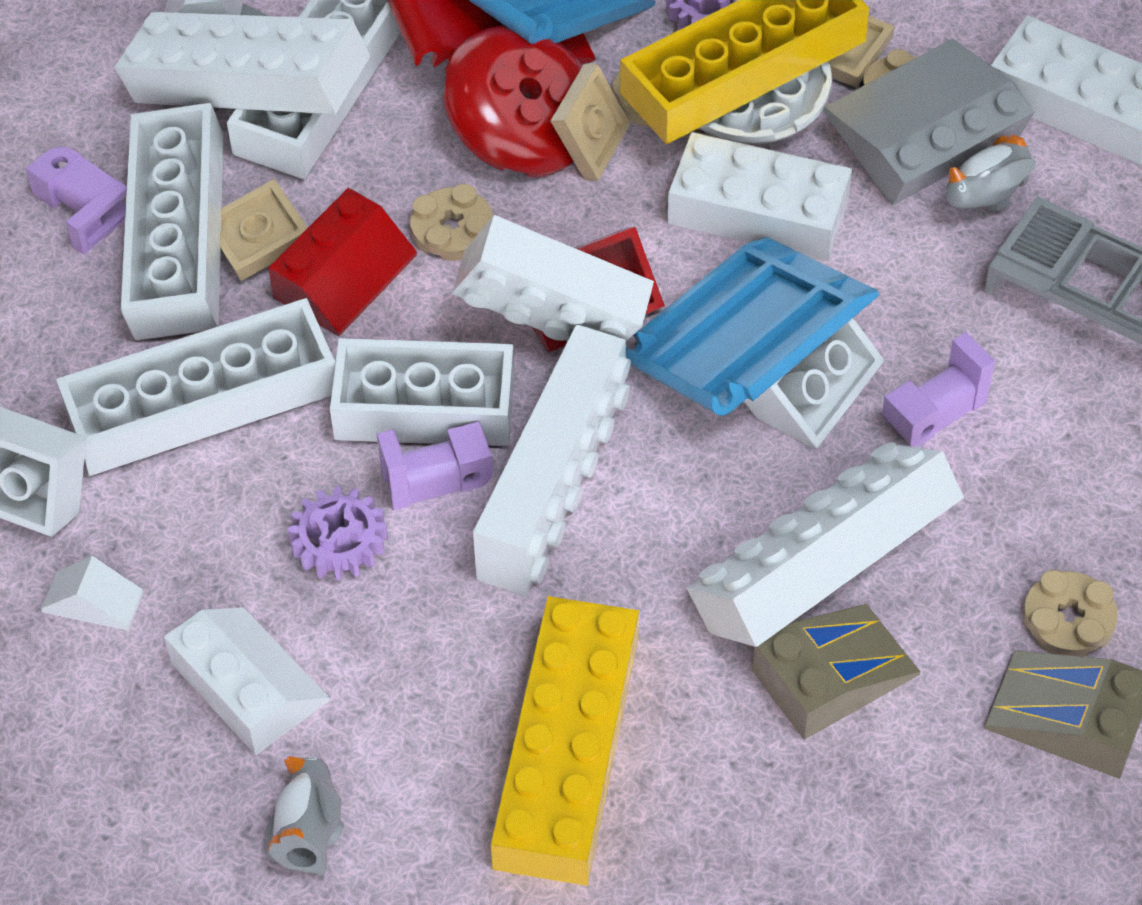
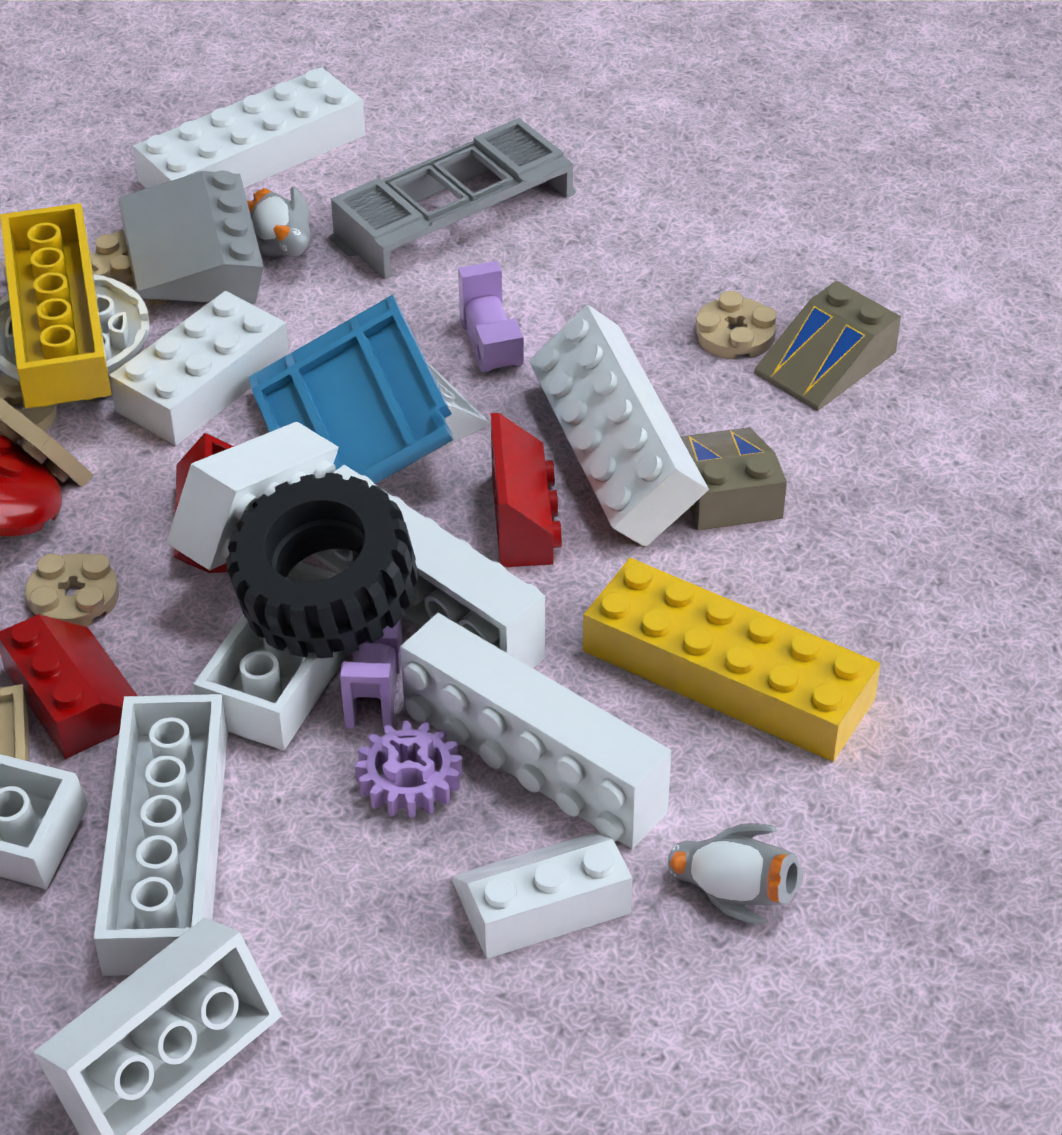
camera: 70 degrees left, 10 degrees down
(93, 595) = (368, 1006): white slope -> none
(395, 605) = (536, 730): none -> white brick
(477, 406) = (333, 611): none -> black tyre
(698, 496) = (522, 496): none -> red slope

